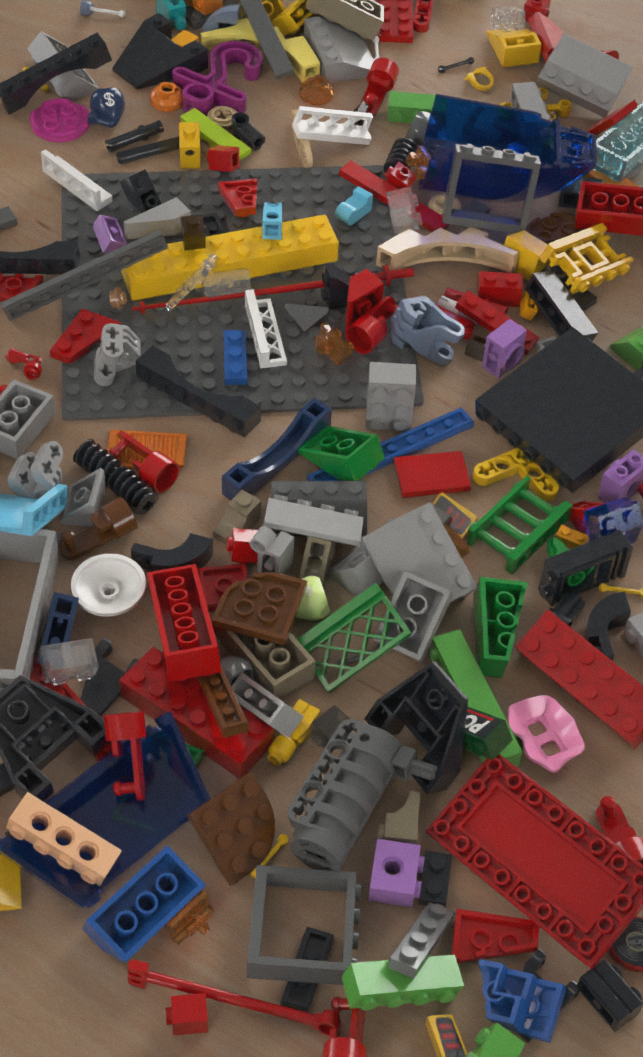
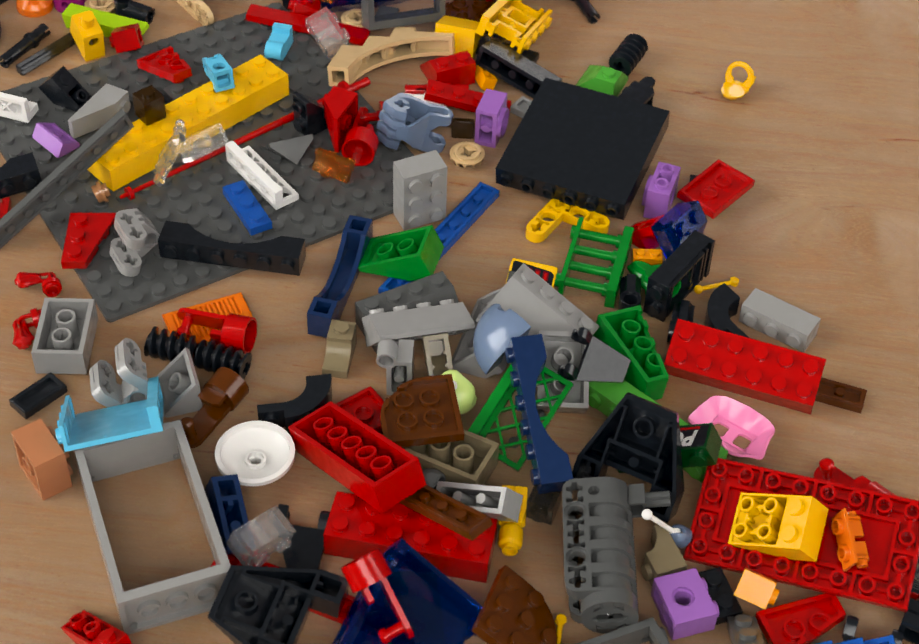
camera: 25 degrees left, 5 degrees down
(239, 546) = (363, 370): red brick -> none
(365, 562) = (494, 335): none -> sand blue brick
(372, 599) = (548, 460): none -> dark blue arch
(429, 808) = (680, 539): none -> hinge
(432, 474) = (490, 247): red tile -> none
(446, 621) = (598, 361): none -> flag
(467, 888) = (757, 589): none -> light orange brick
(474, 373) = (471, 149): none -> tan gear
(516, 840) = (779, 525): none -> yellow slope
(530, 568) = (630, 291): none -> black piece
(565, 891) = (846, 528): none -> orange hinge

